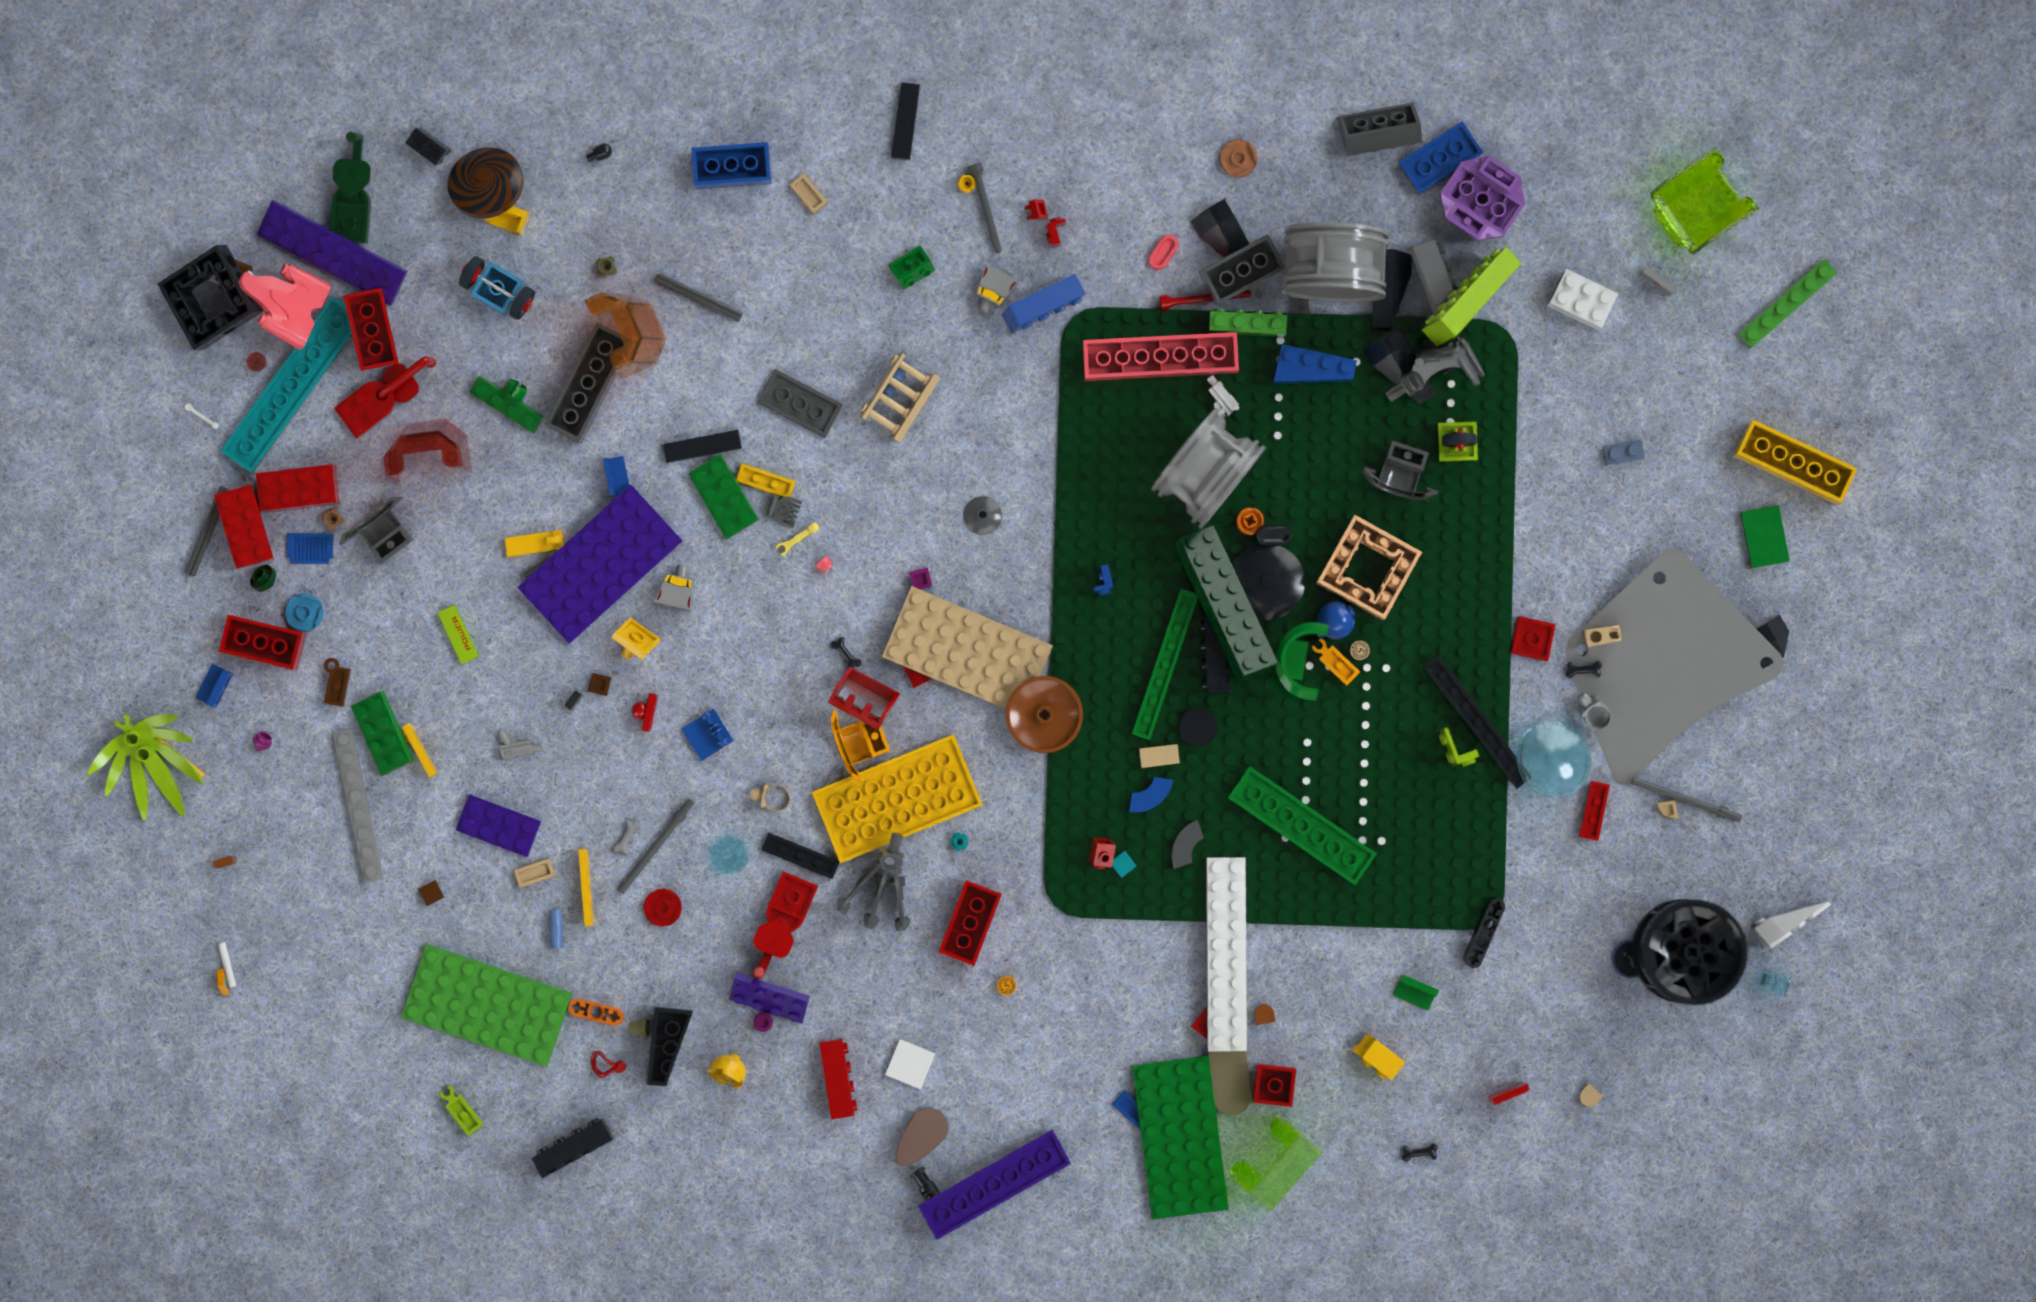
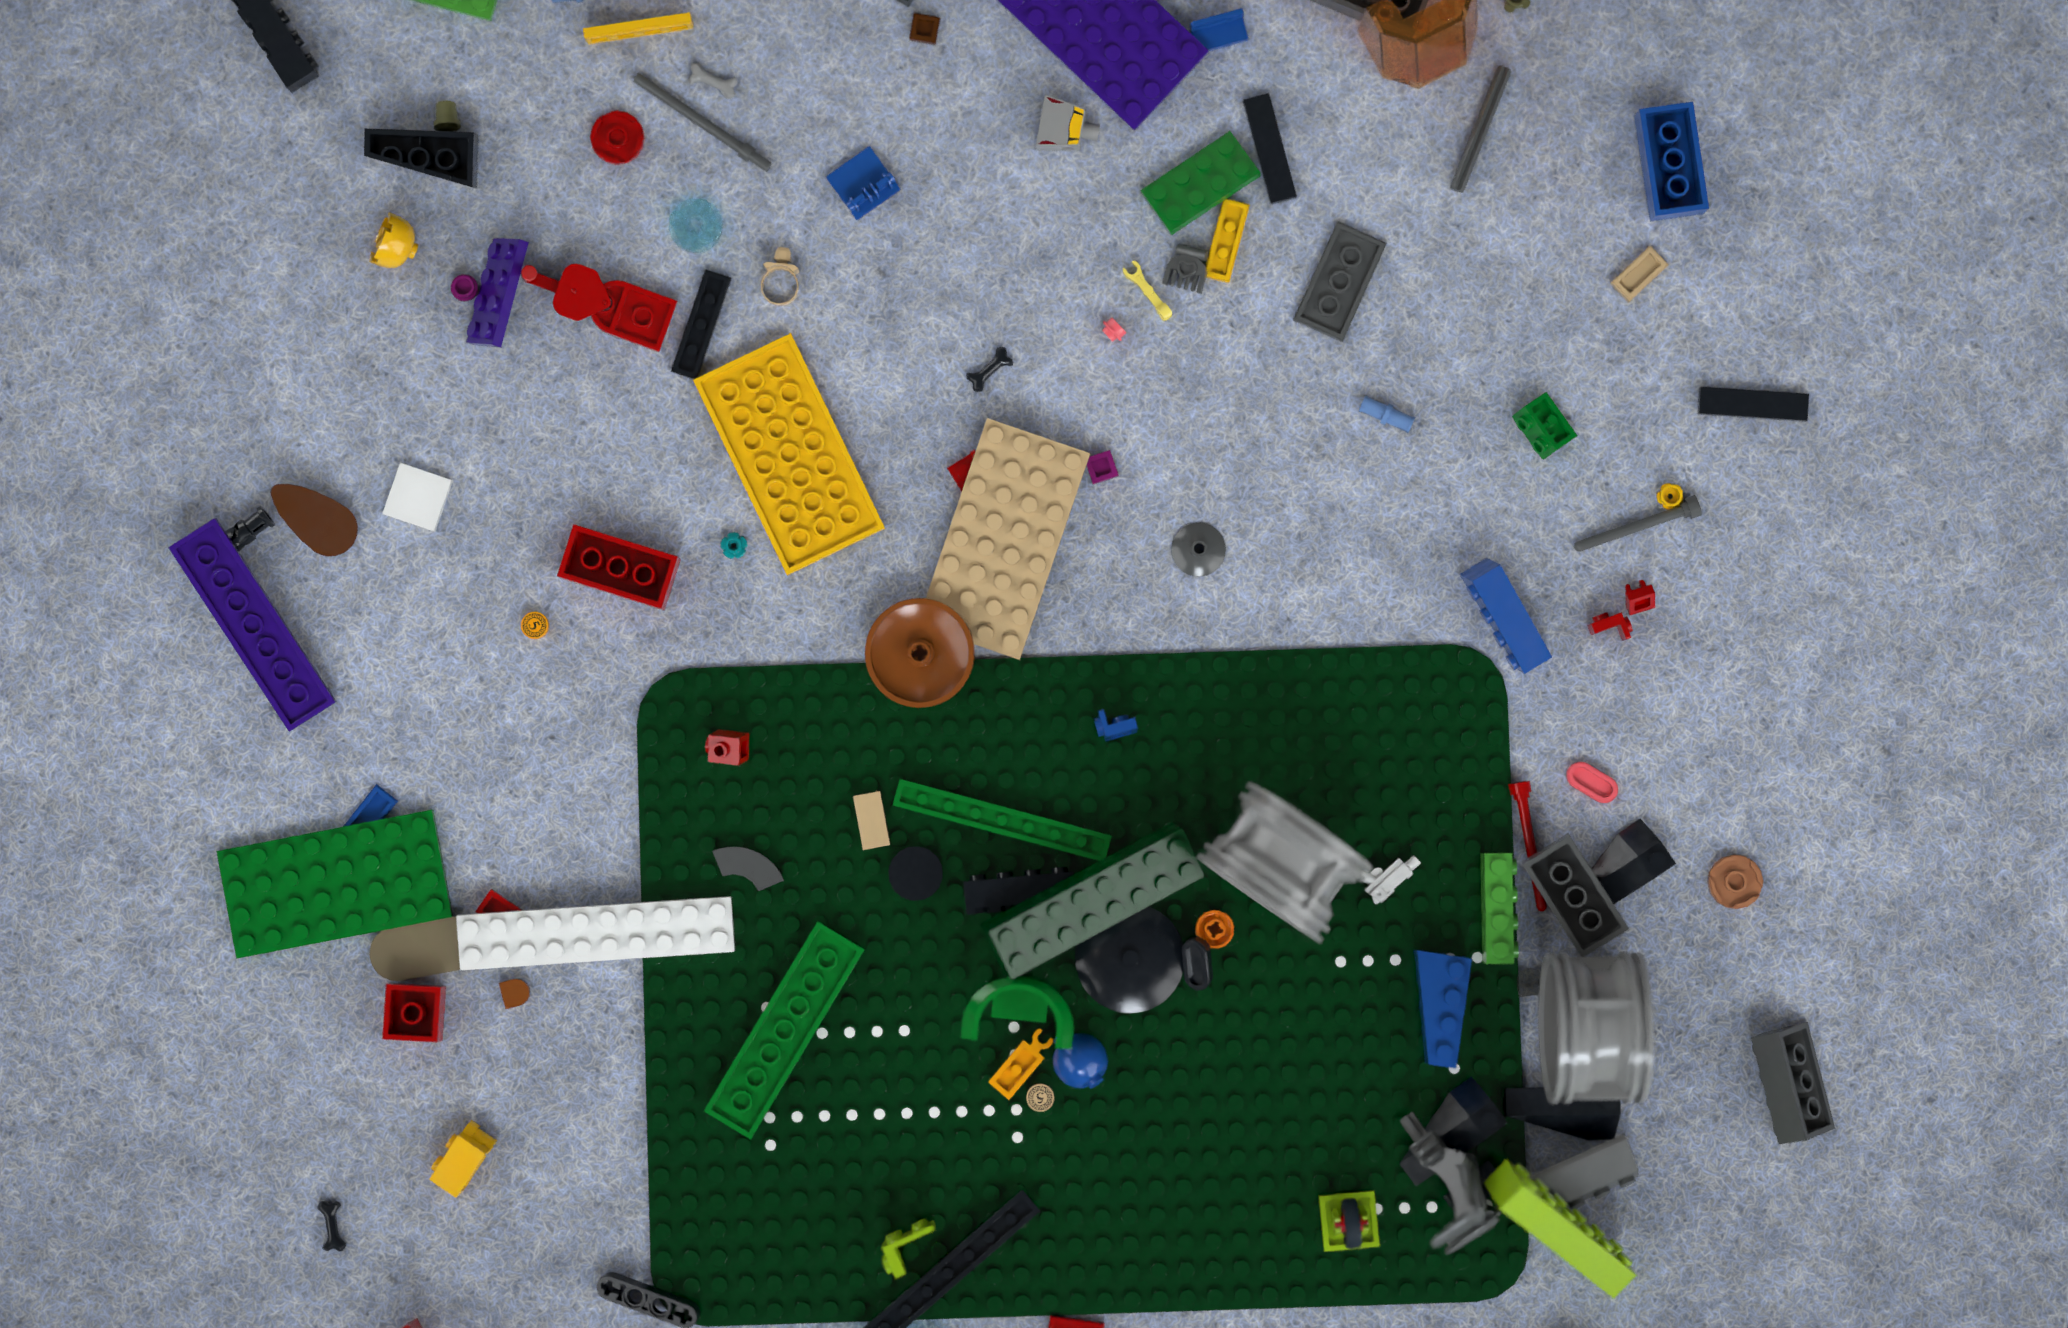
camera: 85 degrees right, 0 degrees up
(592, 1004) = (477, 36): orange beam -> none
(618, 1067) = (390, 91): red piece -> none
(635, 639) = (990, 72): yellow tile -> none
(645, 711) = (889, 95): red tile -> none
(837, 1078) = (389, 396): red brick -> none
(857, 743) = (864, 394): light orange piece -> none
(863, 698) = (926, 395): red window -> none
(871, 920) = (616, 428): dark grey piece -> none
(908, 414) = (1358, 446): tan fence -> none
(994, 288) = (1522, 545): light grey torso -> none
(1123, 864) = (714, 779): teal tile -> none
(1151, 796) = (813, 813): blue tile -> none
(1160, 356) = (1441, 786): coral brick -> none
(1284, 1171) = (315, 1052): clear neon green windscreen -> none
(1401, 472) = (1298, 1142): dark grey piece -> none
(1401, 553) = (1181, 1150): light nougat brick -> none
(1415, 992) = (558, 1206): green panel -> none
(1440, 157) = (1758, 1172): blue plate -> none
(1488, 179) = (1731, 1244): medium lavender piece -> none

